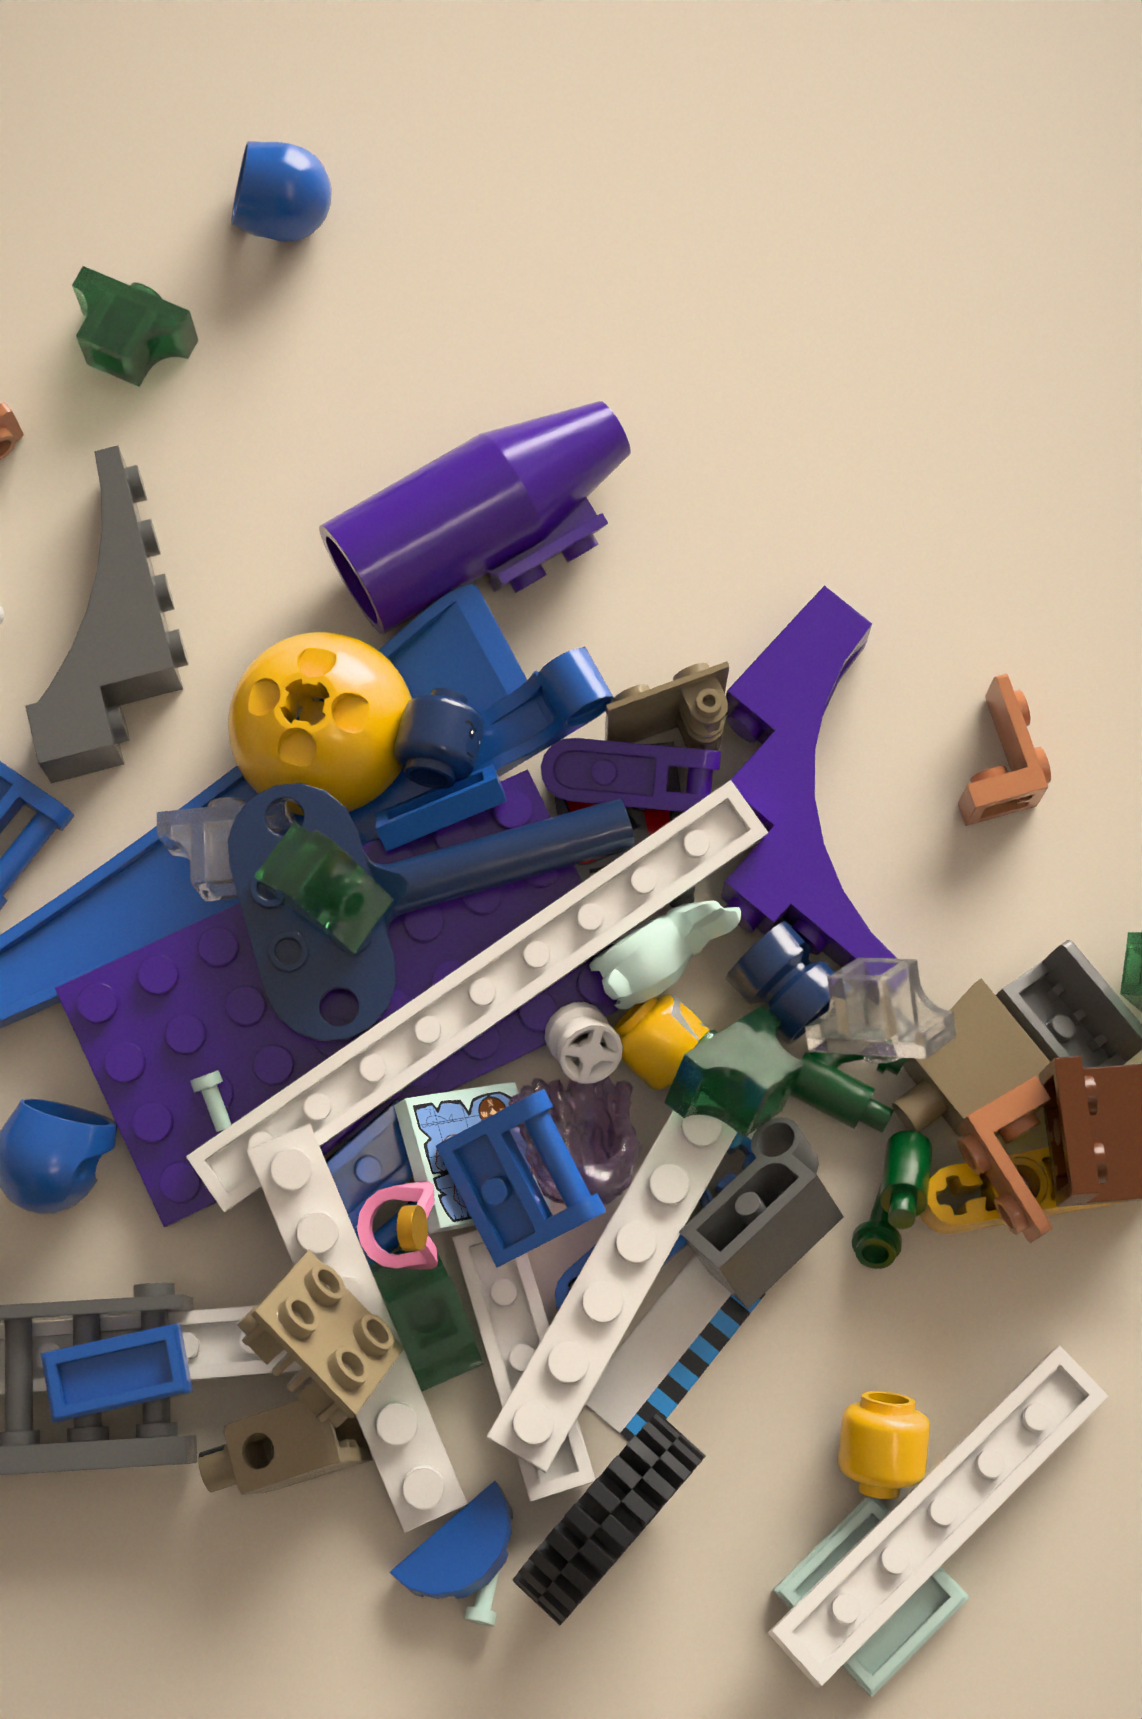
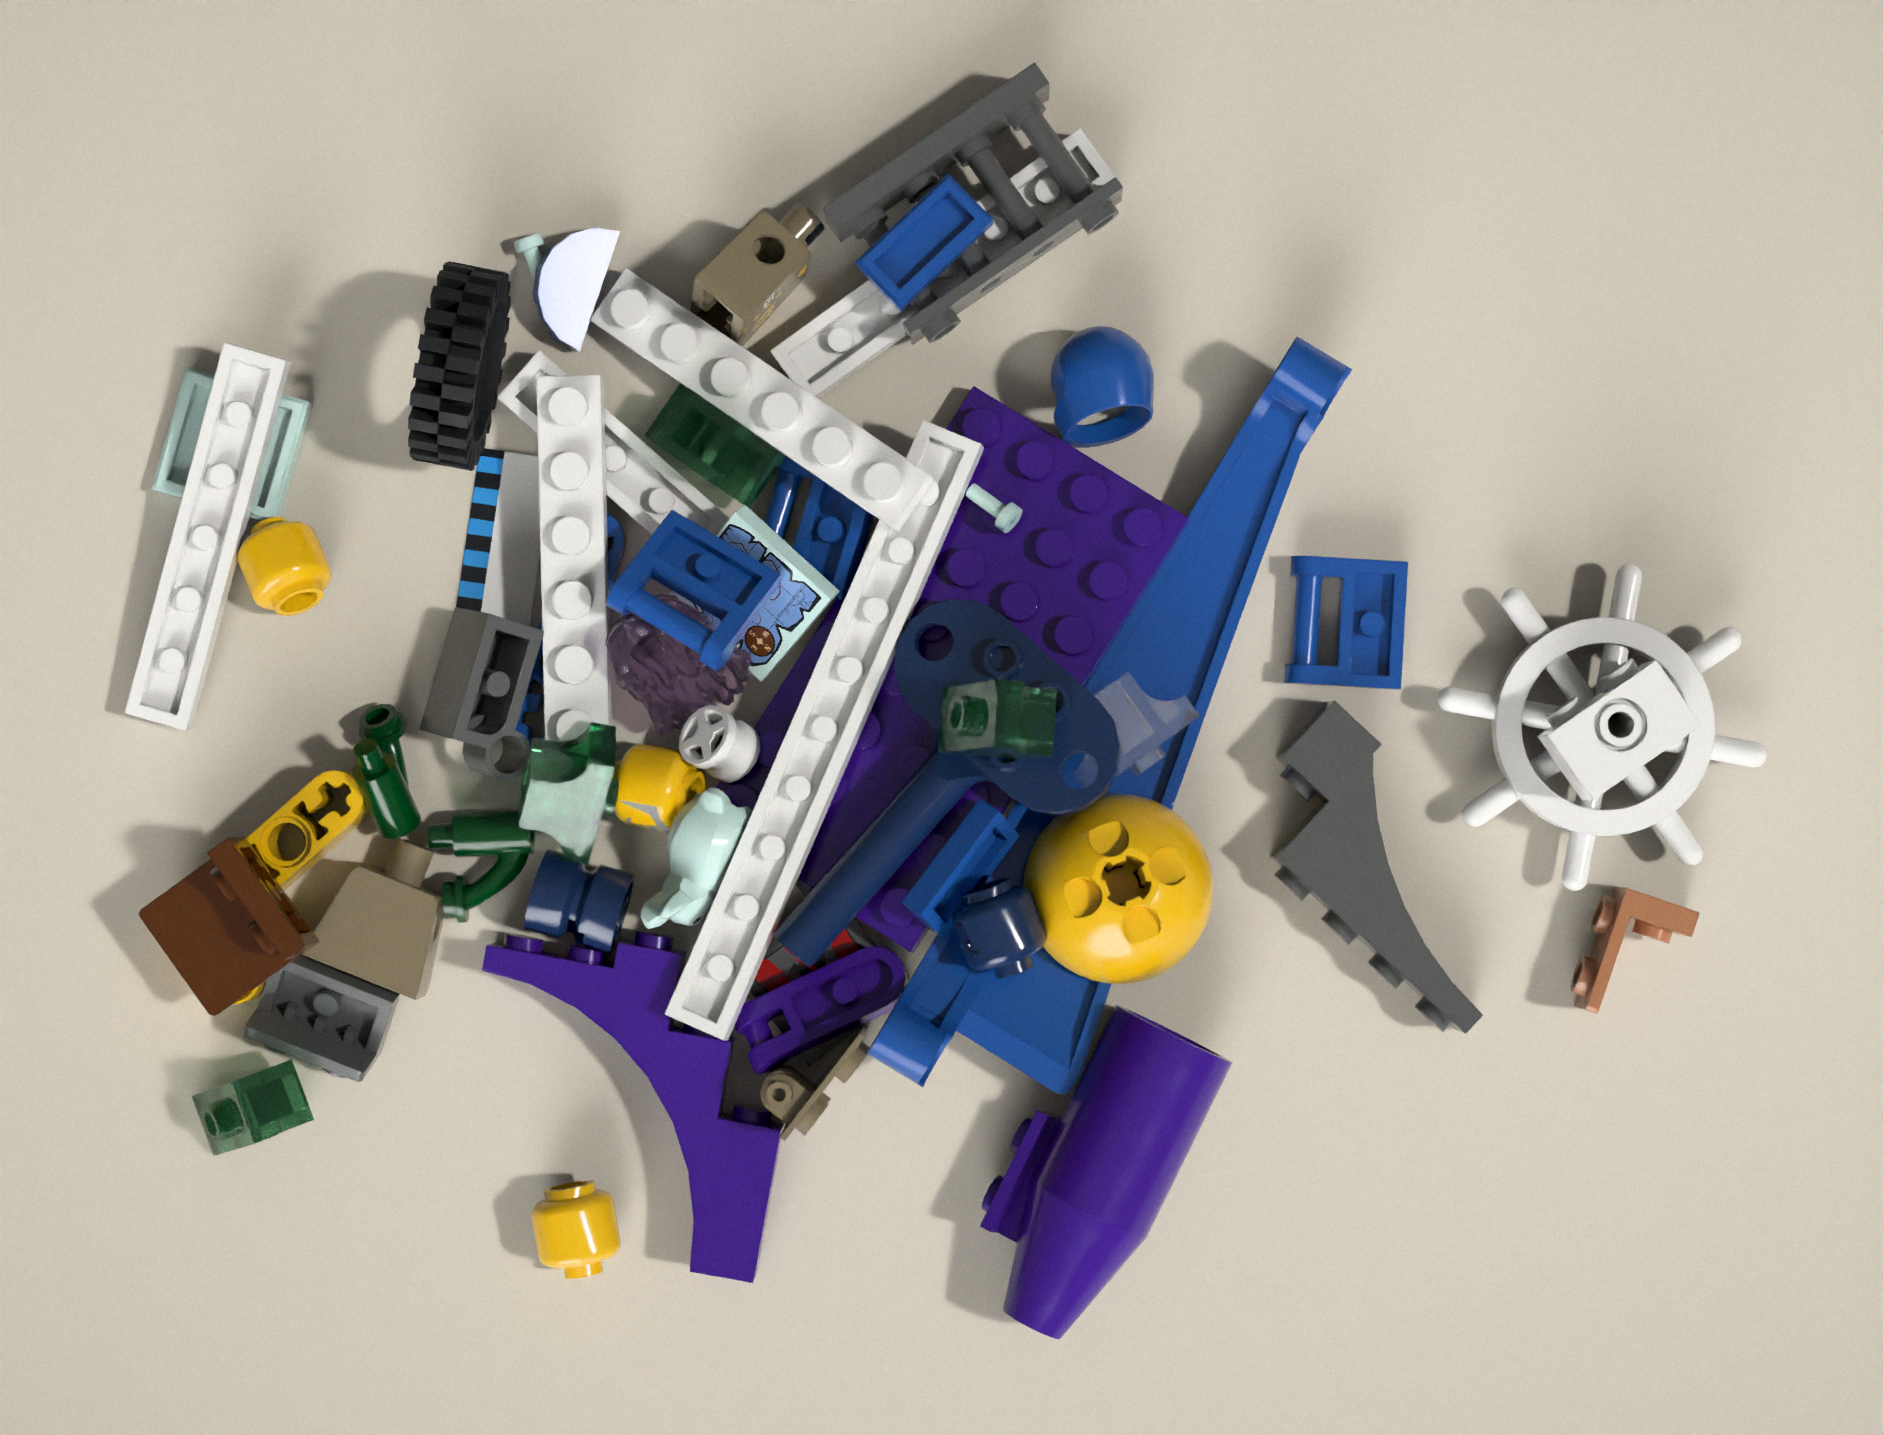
camera: 150 degrees right, 15 degrees up
(129, 326) = (1544, 1163): clear green brick -> none
(280, 192) = (1493, 1379): blue helmet -> none
(327, 1335) = (765, 362): dark tan hinge -> none
(411, 1227) = (750, 492): bright pink piece -> none
(880, 1013) = (478, 912): clear brick -> none
(948, 718) = (576, 1228): none -> yellow head
(994, 789) = (499, 1188): nougat bracket -> none
(1011, 1118) = (320, 885): nougat bracket -> none

